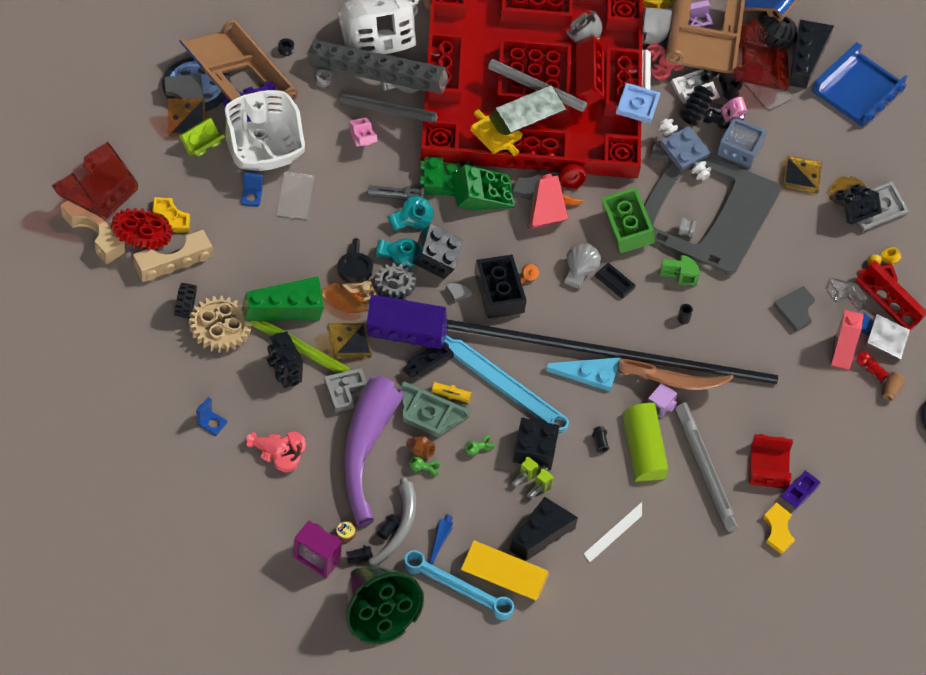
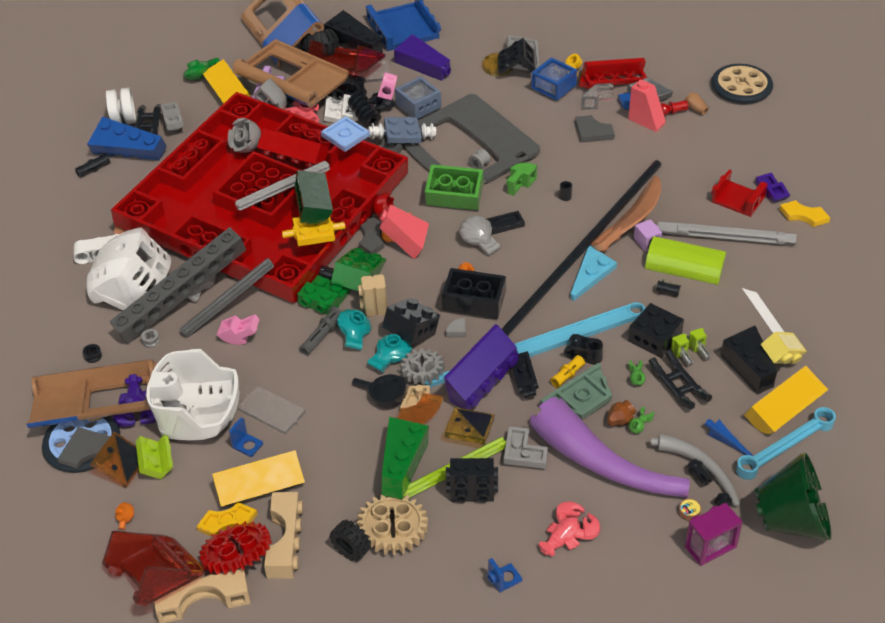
camera: 55 degrees left, 10 degrees down
(140, 146) = (124, 514): none -> orange piece
(216, 217) = (258, 478): none -> yellow brick
(451, 212) = (374, 295): none -> tan brick
(483, 396) = (588, 348): none -> black piece
(486, 471) = (679, 371): none -> black piece
(562, 548) = (784, 348): none -> light yellow brick
(802, 174) = (465, 81): clear yellow tile -> none
(811, 120) = (422, 58): none -> dark purple slope
(846, 246) = (554, 78): none -> blue piece

